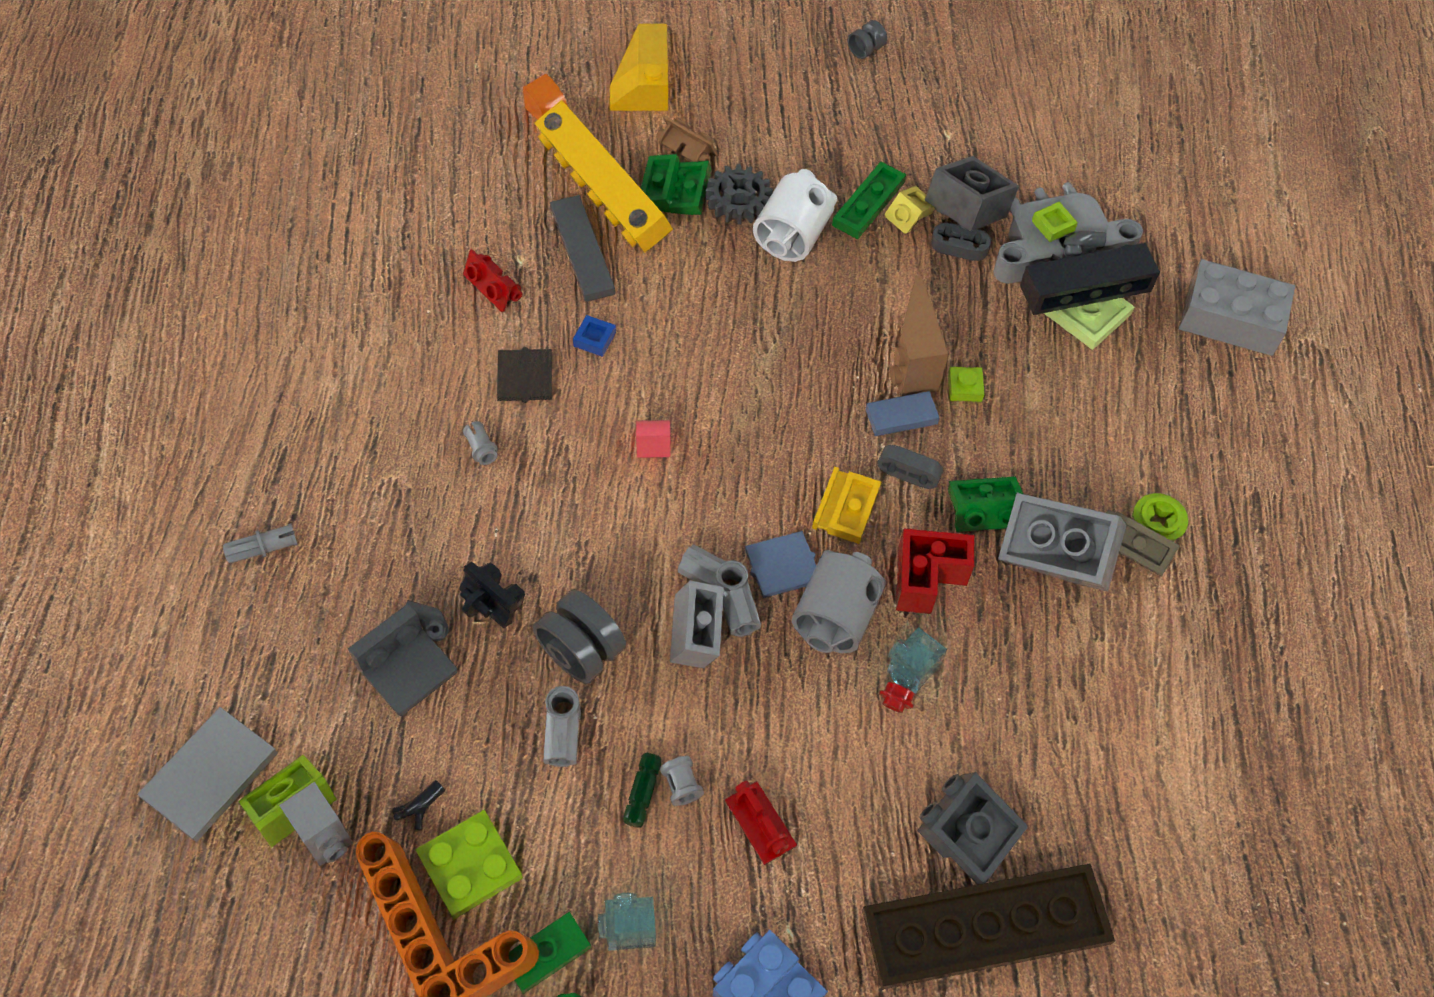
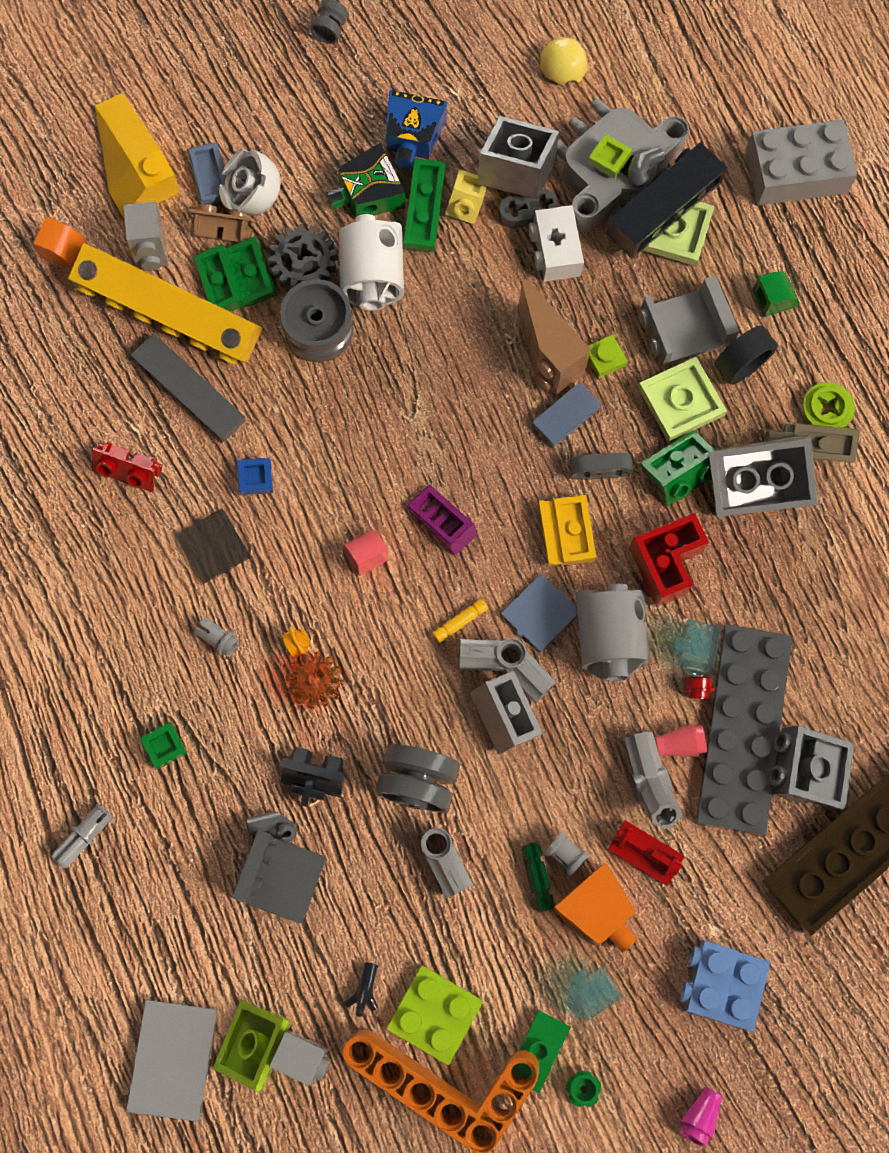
camera: 30 degrees left, 15 degrees up
(377, 506) = (163, 745): none -> green plate
(541, 516) = (327, 682): none -> clear orange gear
(546, 479) = (296, 641): none -> light orange plate
(617, 118) = (146, 235): none -> light grey brick
(682, 847) = (599, 910): none -> orange torso
(701, 106) = (207, 171): none -> sand blue tile
(704, 534) = (460, 620): none -> yellow wheel
(721, 240) = (317, 320): none -> dark grey wheel
(729, 121) = (250, 183): none -> white cylinder
(742, 464) = (457, 534): none -> magenta slope
(802, 751) = (651, 781): none -> light grey piece
(831, 161) = (368, 185): none -> torso
(854, 738) = (682, 742): none -> coral cone
(894, 138) = (413, 126): none -> blue torso
(926, 750) = (743, 730): none -> dark grey plate
(971, 275) = (566, 257): none -> white brick
(1019, 447) = (682, 399): none -> yellowish green plate
(1057, 146) = (563, 61): none -> light yellow hair
(1059, 392) = (689, 323): none -> light grey panel
(1098, 433) = (745, 354): none -> black tyre
(1157, 401) = (775, 293): none -> green brick

